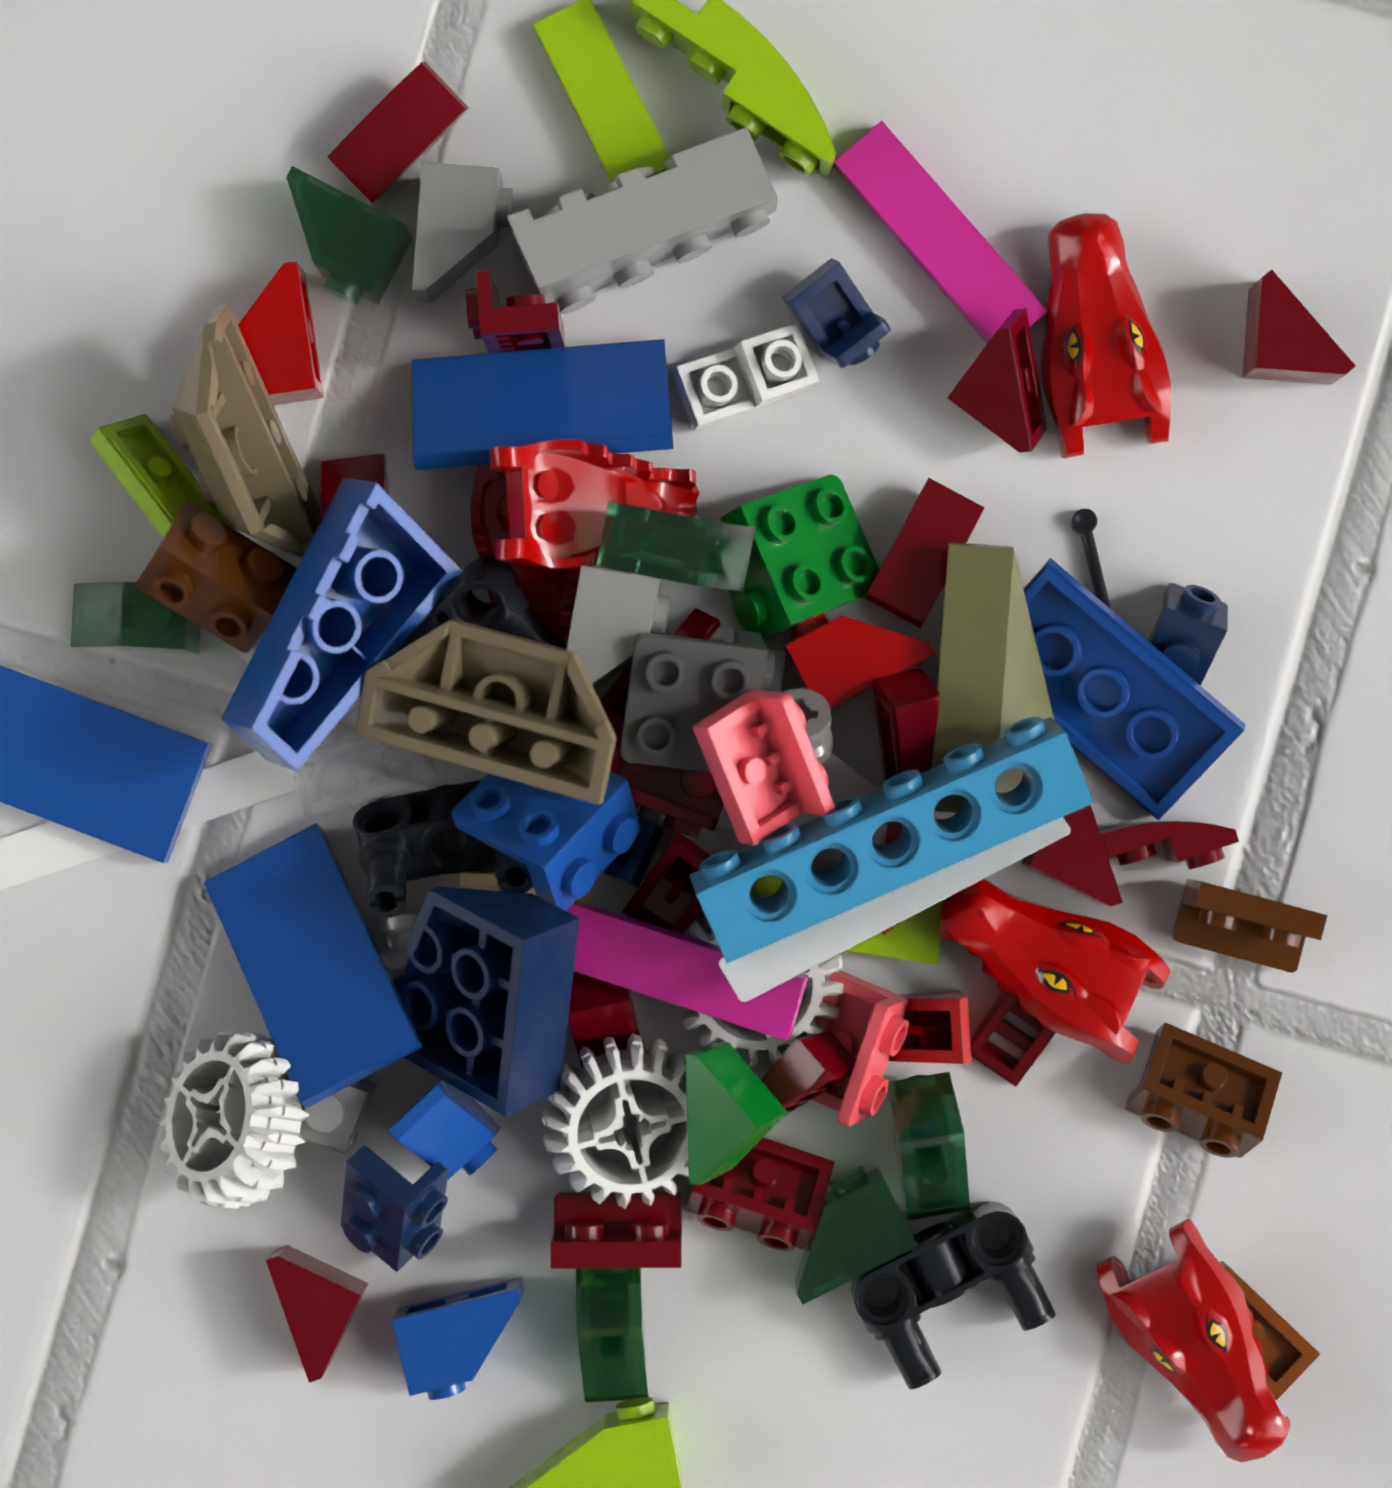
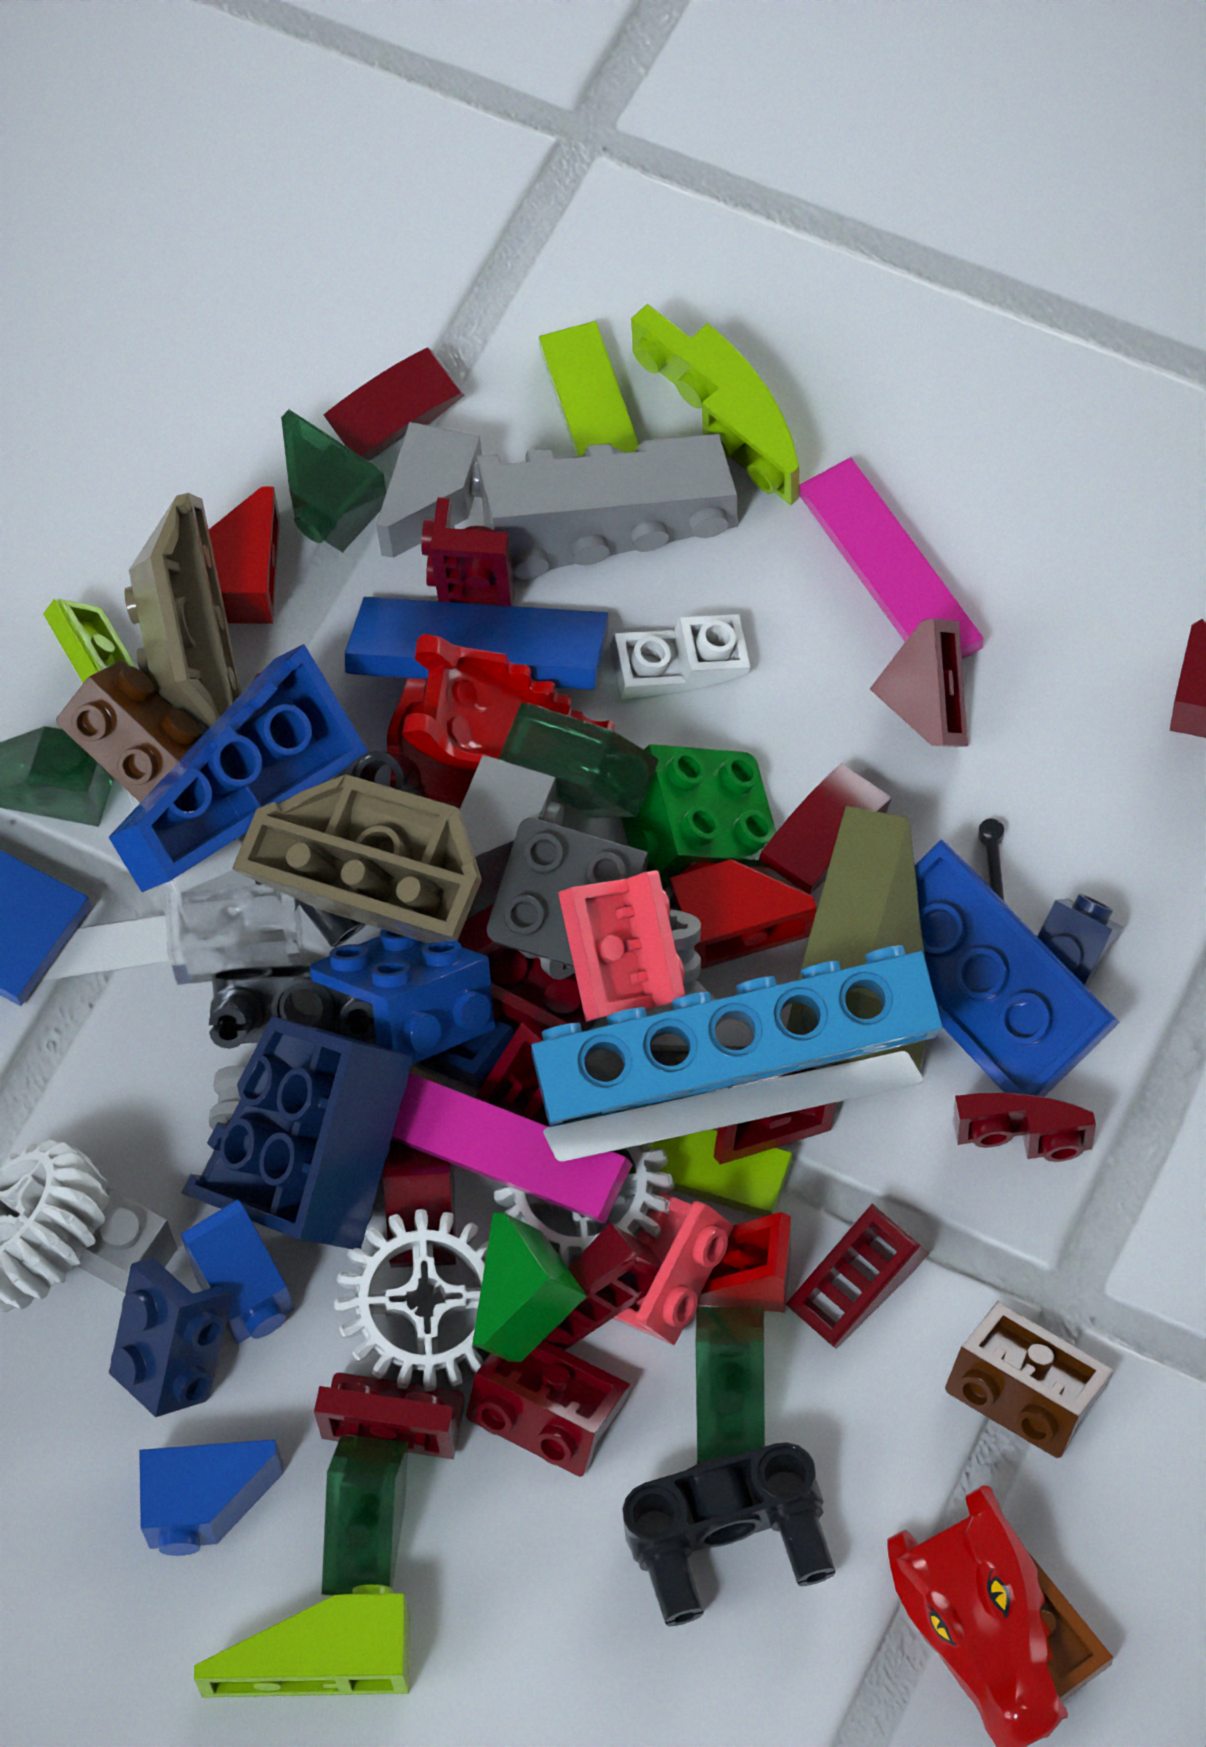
camera: 15 degrees right, 25 degrees down
(312, 965) = (141, 1101): blue tile -> none
(316, 1305) = (69, 1441): dark red slope -> none
(836, 315) = (775, 610): dark blue bracket -> none
(854, 1233) = (632, 1446): clear green slope -> none
(906, 720) = (777, 951): dark red slope -> none
(1061, 965) = (891, 1221): red animal -> none
(1079, 860) = (925, 1123): dark red slope -> none
(1099, 344) = (1030, 667): red animal -> none
(1245, 925) = (1096, 1212): reddish brown bracket -> none

